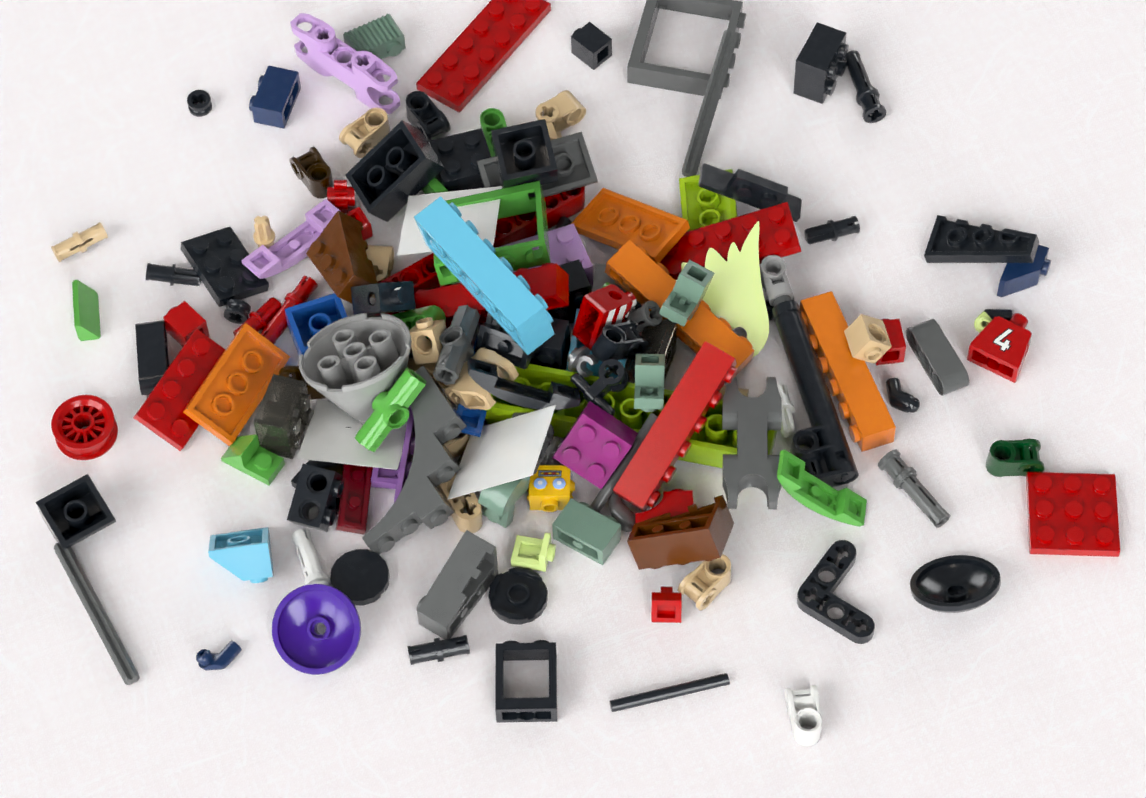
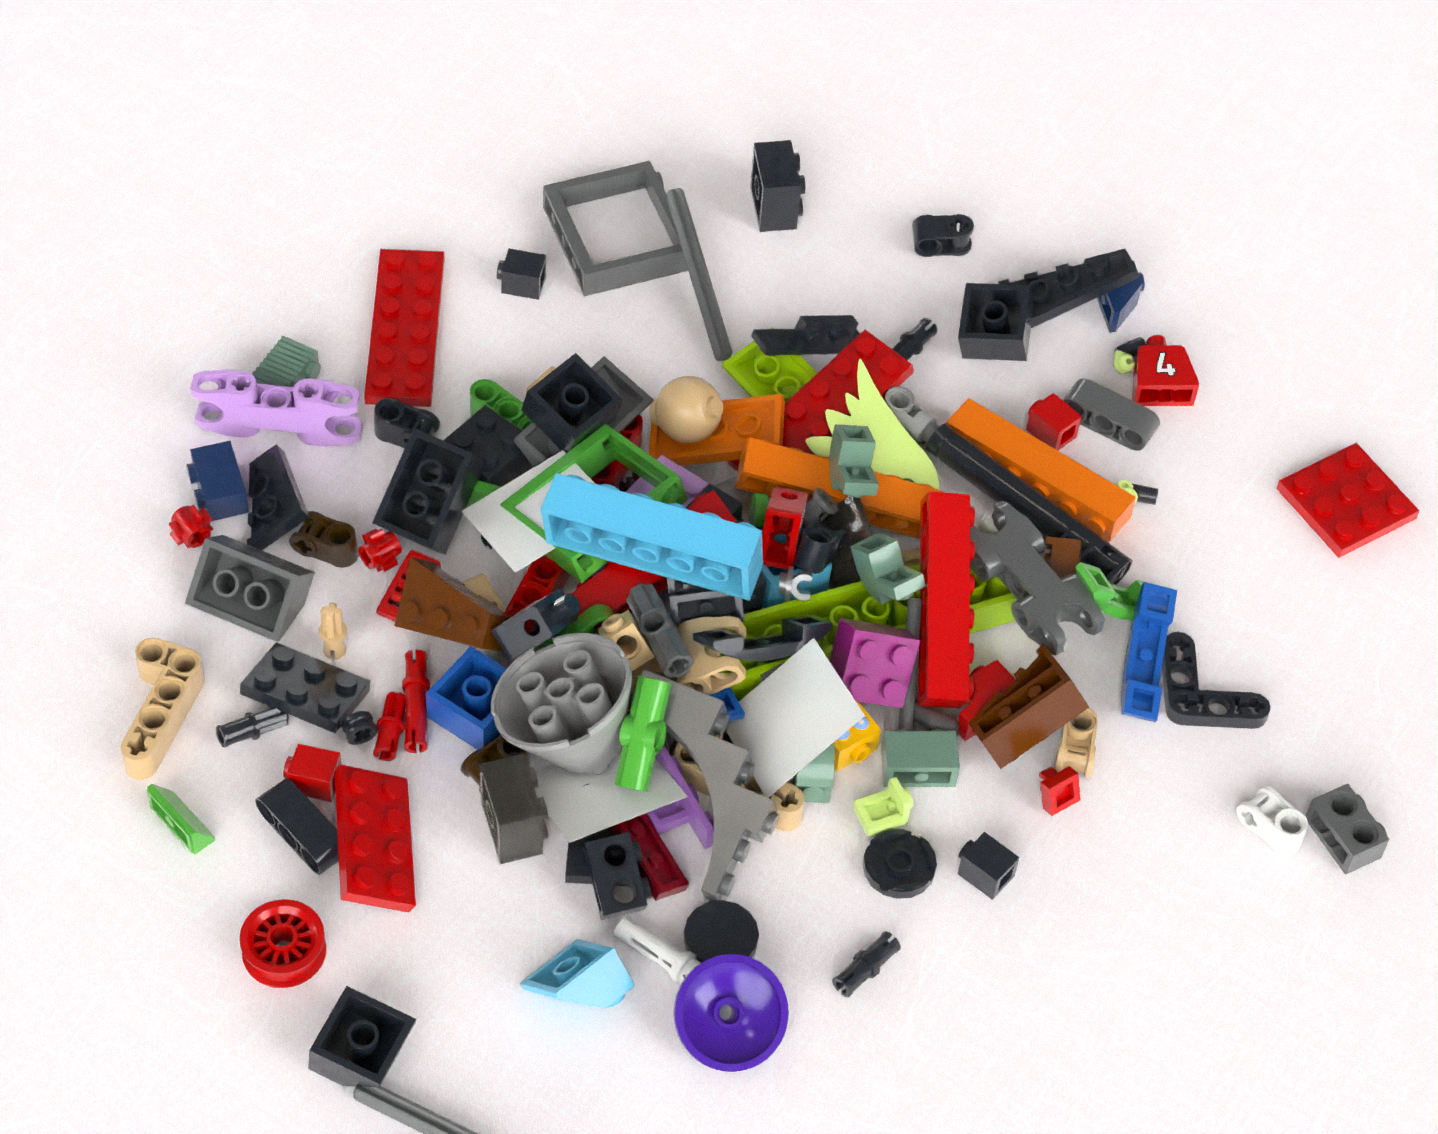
camera: 40 degrees left, 5 degrees down
(79, 242) = (108, 747): tan pin -> none
(127, 235) = (168, 682): none -> tan beam
(200, 109) = (122, 527): black bush -> none
(218, 661) = (641, 1111): dark blue arm -> none
(234, 119) = (190, 526): none -> red gear
(236, 384) = (427, 804): orange plate -> none
(240, 178) = (248, 586): none -> dark grey slope
(252, 459) = (499, 876): bright green slope -> none
(293, 246) = (370, 620): lavender slope -> none
(304, 125) = (275, 499): none -> black wing
(366, 131) = (352, 469): tan piece -> none
(458, 586) = (840, 884): dark grey wedge -> none
(525, 708) = (1005, 974): black window -> none
(561, 110) = (544, 351): tan piece -> none
(572, 629) = (987, 864): none -> black brick
(603, 385) = (836, 593): black piece -> none
(613, 199) = (687, 409): none -> tan brick
(669, 692) = (1126, 876): black bar -> none
(793, 440) = (1064, 555): none -> reddish brown brick
(810, 545) = (1146, 651): none -> blue slope
(849, 748) = (1341, 832): none -> dark grey brick
(867, 95) = (838, 199): black pin -> none
(867, 339) = (1046, 424): tan brick -> none
(899, 399) = (1110, 471): black arm -> none
(900, 244) = (996, 321): none -> black brick
(906, 479) = (1176, 544): dark grey pin -> none
(907, 424) = (1142, 493): none -> black arm
(920, 157) = (940, 237): none -> black piece
(955, 583) = (1311, 616): black dish -> none
(1017, 458) = (1258, 474): dark green piece -> none

